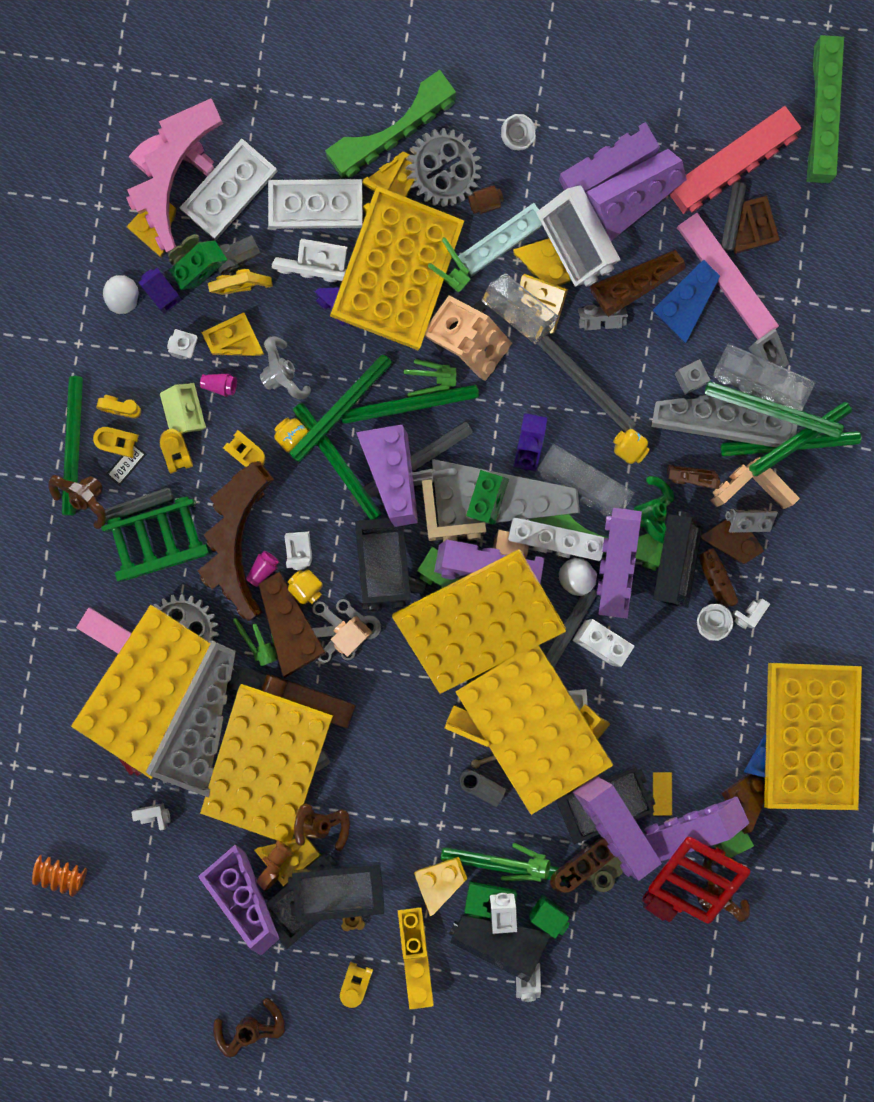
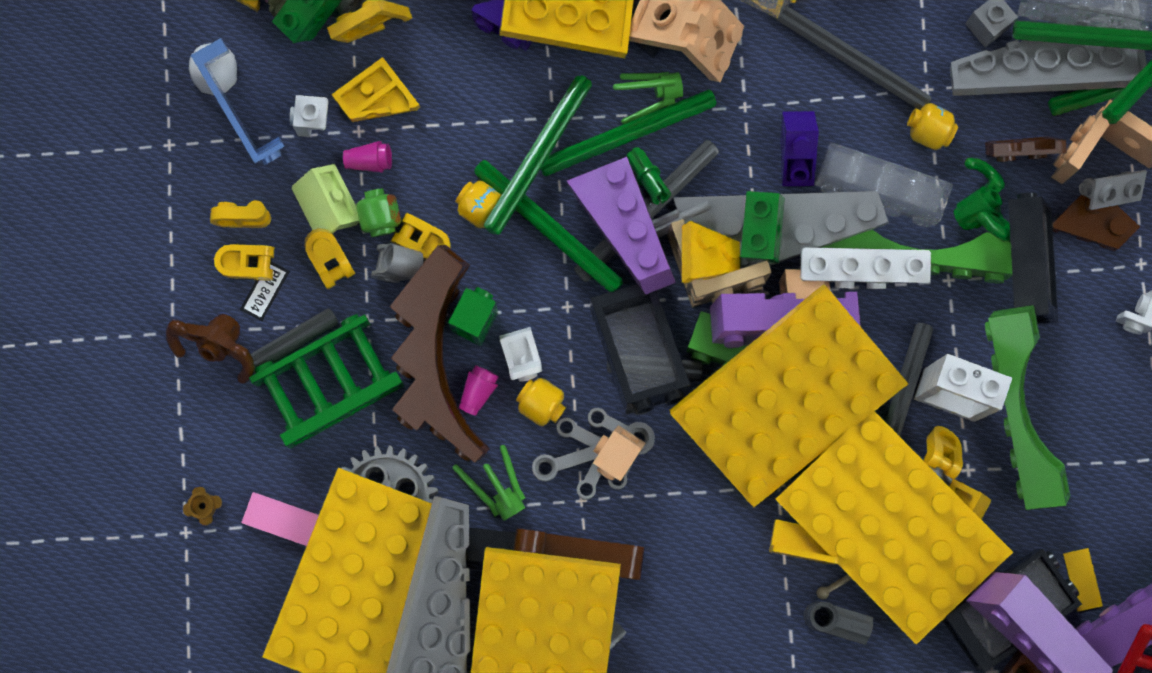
camera: 15 degrees left, 5 degrees down
(51, 603) = (193, 508): none -> pearl gold plate
(72, 438) = (186, 271): green axle -> none
(110, 299) = (209, 55): none -> medium blue panel
(159, 290) = (265, 50): dark purple slope -> none
(217, 426) = (378, 213): none -> bright green head
(223, 466) = (396, 263): none -> light grey piece
(269, 516) = (474, 315): none -> green brick
(280, 370) = (447, 123): light grey piece -> none
(290, 630) = (535, 463): reddish brown wing -> none
(417, 439) = (648, 176): none -> green axle
(443, 508) = (707, 253): none -> yellow wing
(577, 576) = (902, 311): white hair -> none
(584, 677) = (944, 451): none -> yellow plate
(619, 562) = (957, 277): medium lavender wedge -> none
(647, 713) = (1041, 474): none -> bright green arch
(715, 622) = (1099, 332): white hair -> none
(718, 578) = (1089, 276): reddish brown hinge -> none

